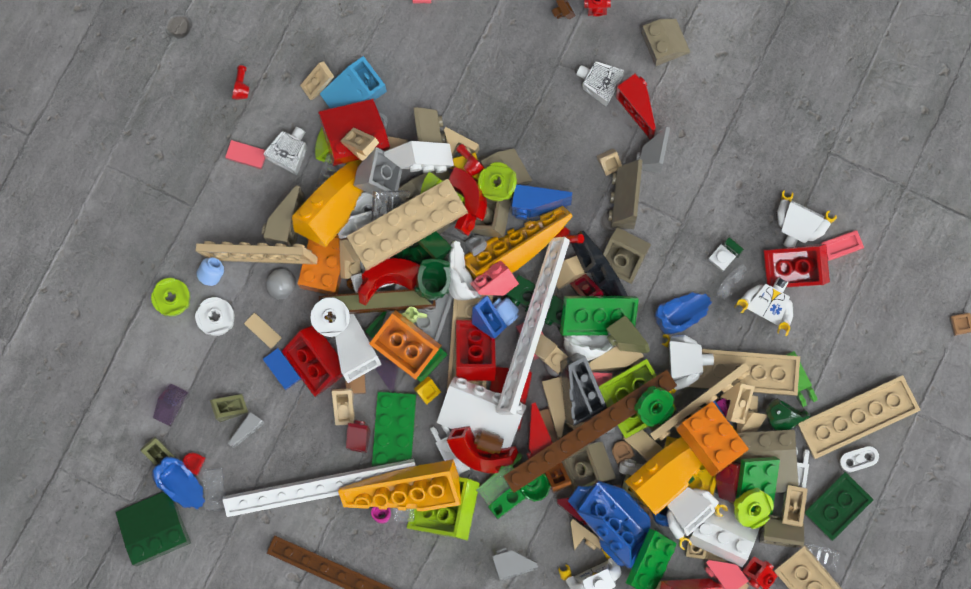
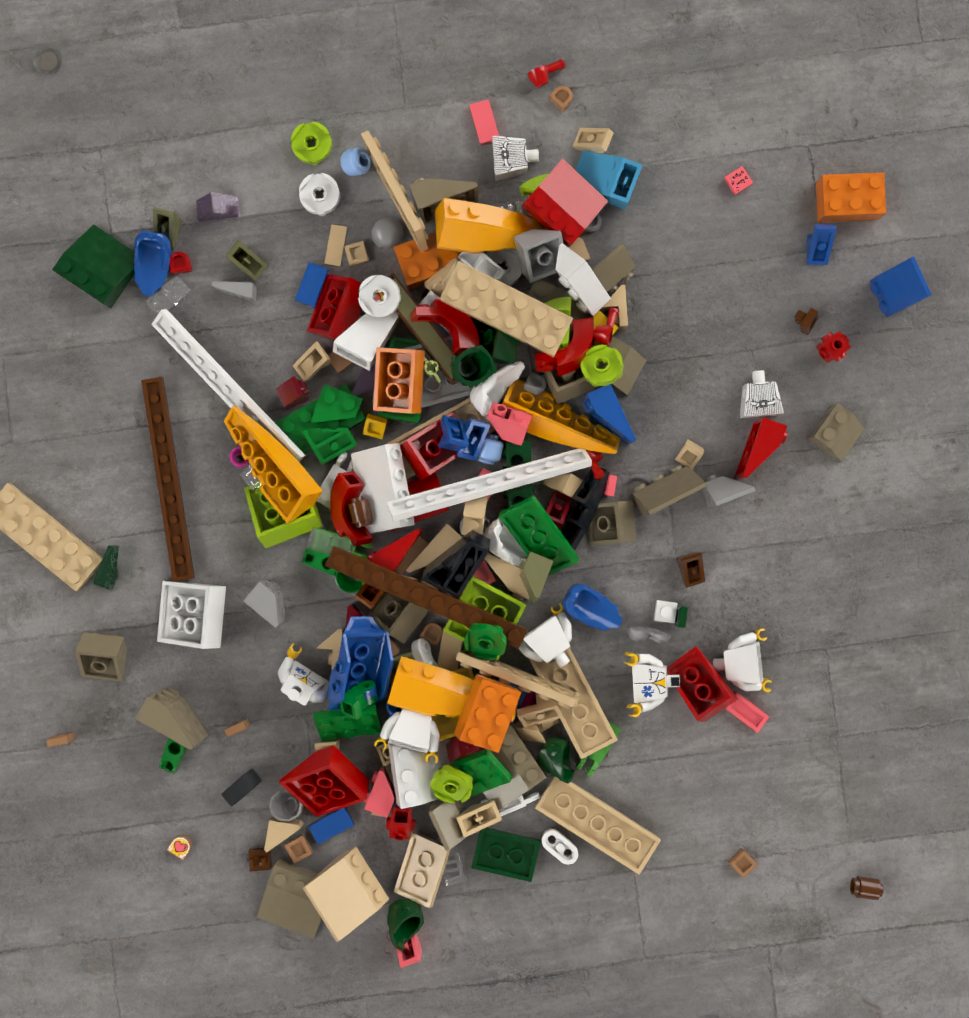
camera: 50 degrees right, 10 degrees up
(267, 84) = (561, 97): none -> medium nougat tile
(281, 318) = (356, 253): none -> tan tile
(360, 143) = (553, 214): tan slope -> none
(387, 201) = (518, 277): clear wing -> none
(391, 409) = (336, 406): none -> green wing
(416, 433) = (329, 441): none -> green wing
(477, 328) = (454, 434): none -> blue slope
(595, 236) = (610, 486): none -> coral tile
(636, 535) = (359, 698): none -> green leg
(701, 216) = (691, 568): none -> reddish brown slope

